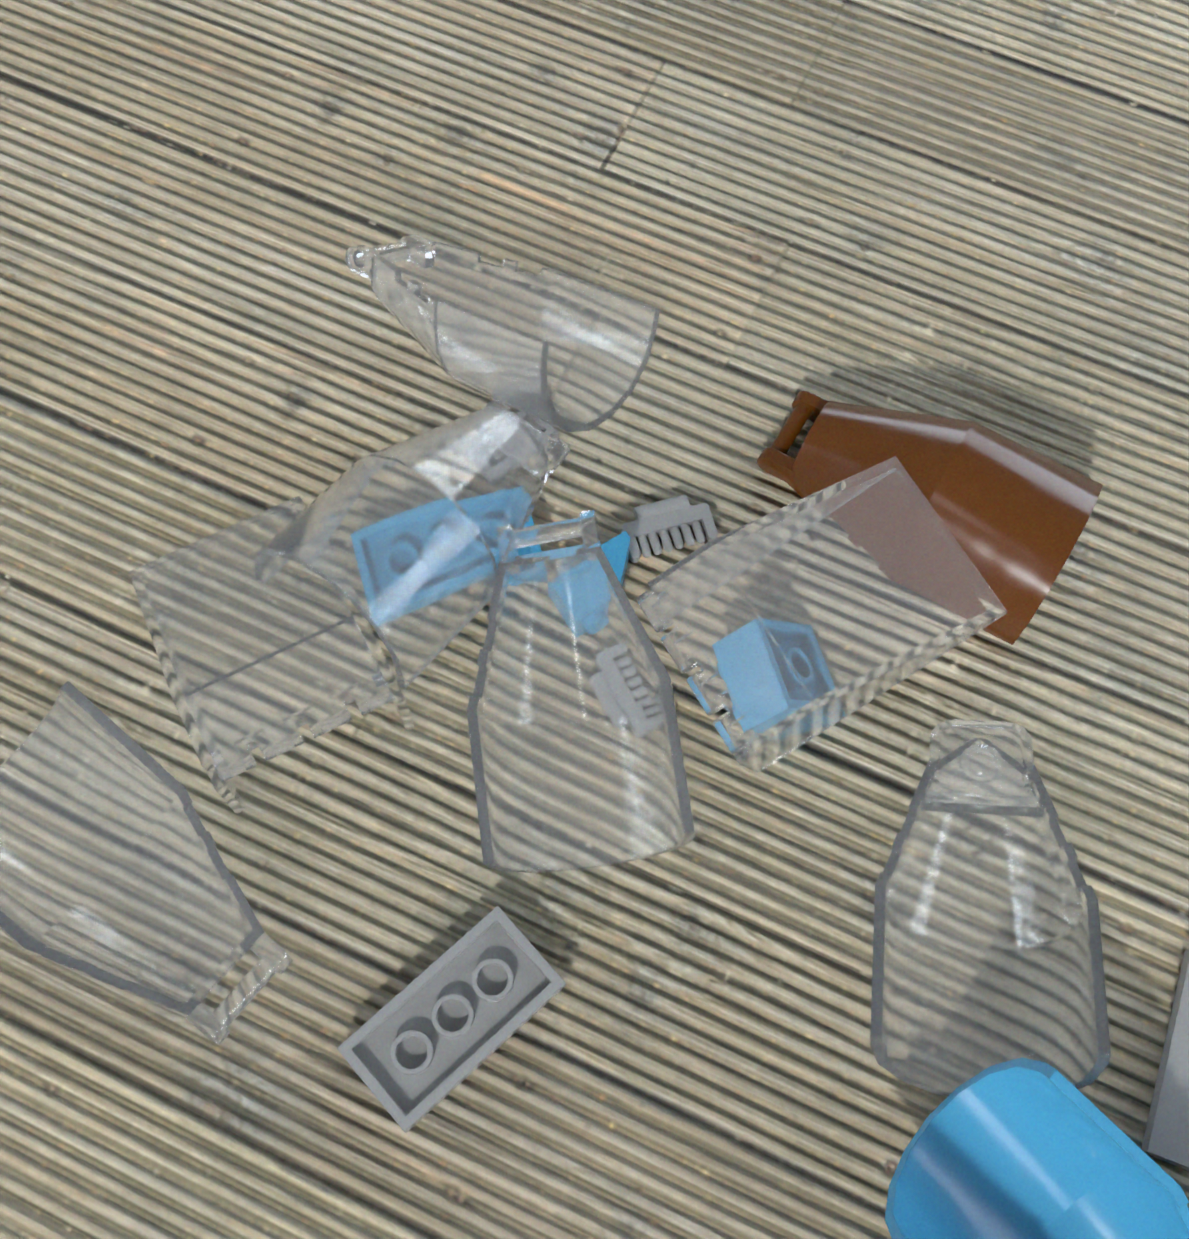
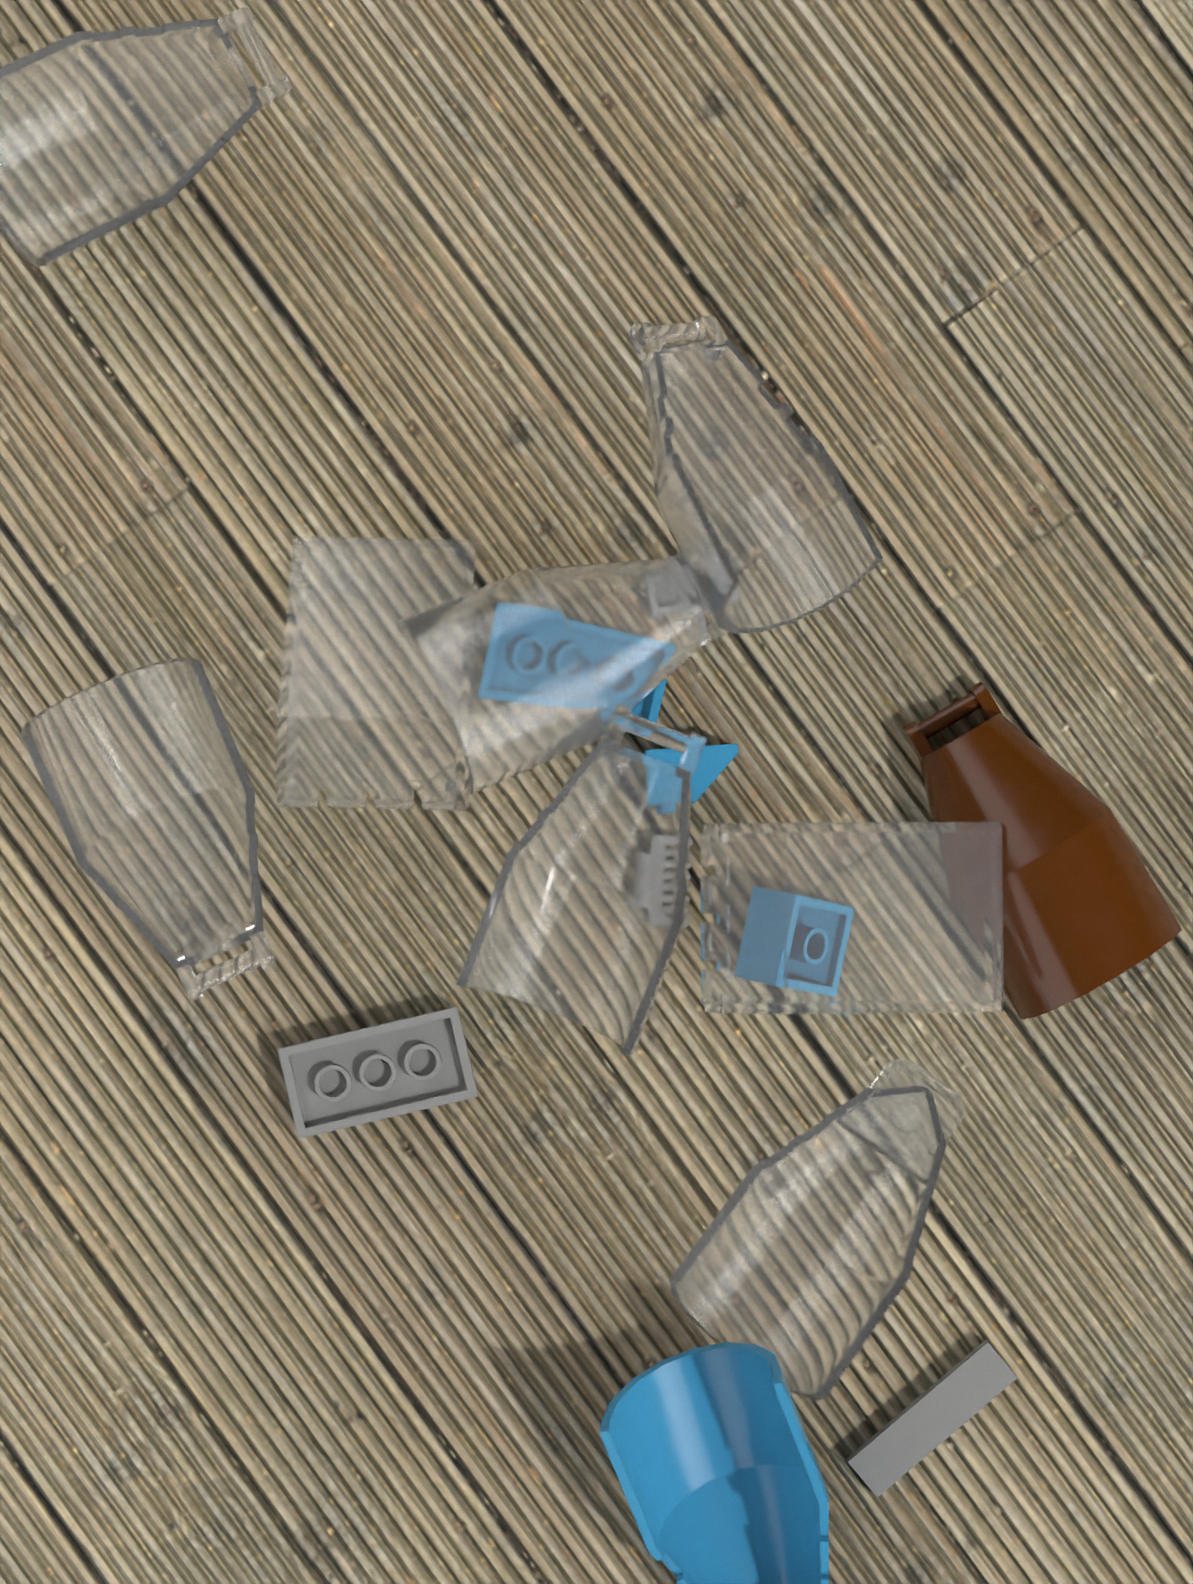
camera: 30 degrees right, 20 degrees up
(666, 517) = (788, 736): light grey piece -> none

